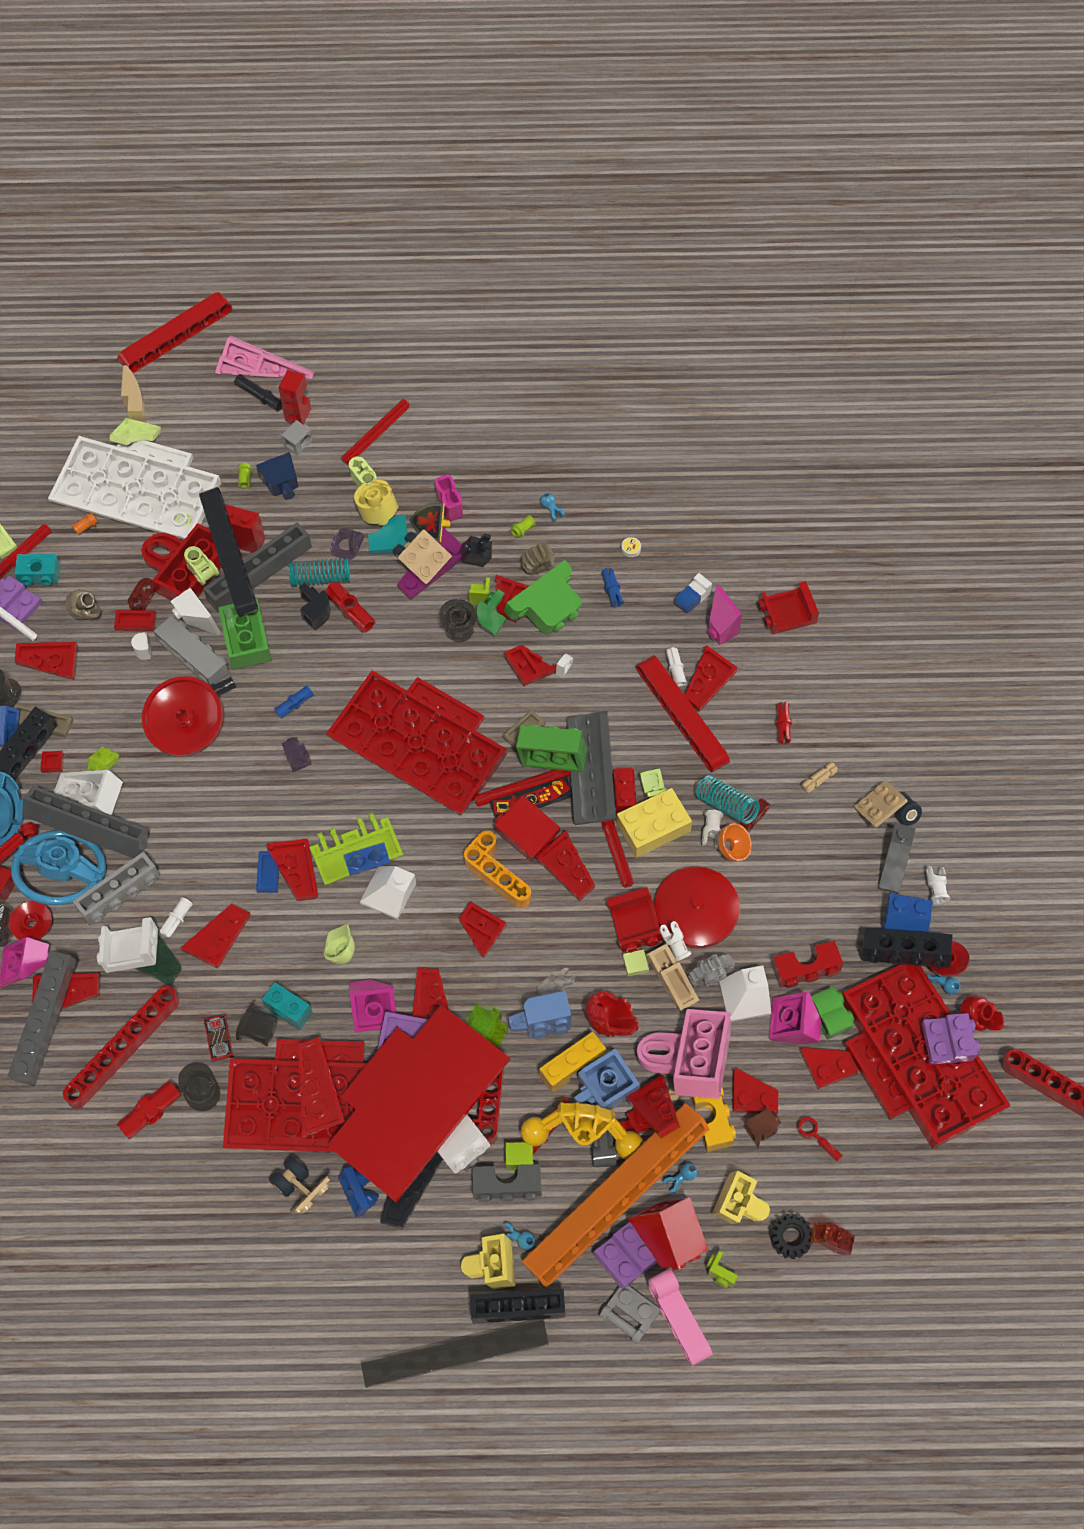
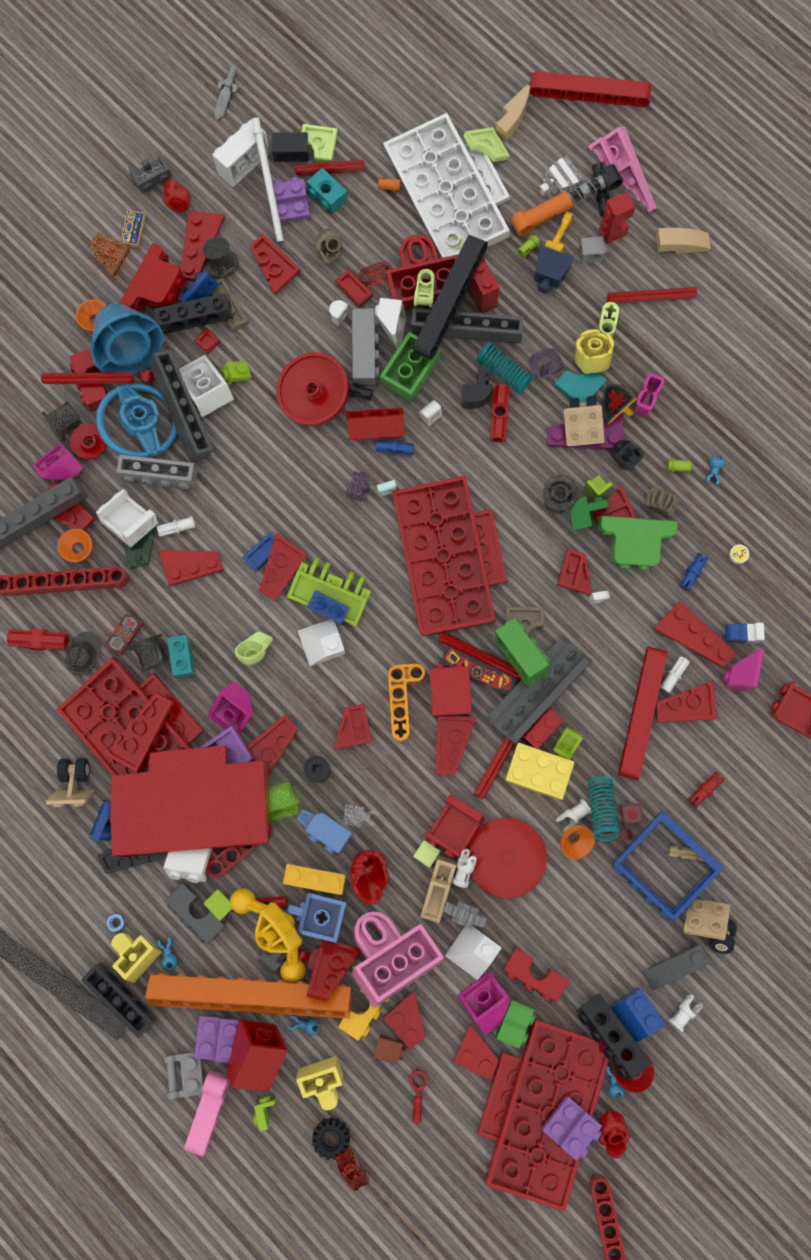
camera: 50 degrees right, 15 degrees up
(101, 999) = (69, 540): none -> orange piece
(220, 409) = (560, 177): none -> clear torso
(224, 459) = (525, 221): none -> piece
(259, 446) = (555, 243): none -> yellow brick
(261, 697) = (375, 424): none -> red brick
(295, 653) = (431, 412): none -> white brick
(319, 735) = (386, 488): none -> light aqua tile
(358, 376) = (682, 240): none -> tan slope
(455, 1263) = (110, 922): none -> light blue axle
(486, 981) = (317, 769): none -> black wheel
(651, 629) = (690, 631): none -> red wing
(752, 788) = (631, 813): none -> tile
(815, 763) = (650, 895): none -> blue window

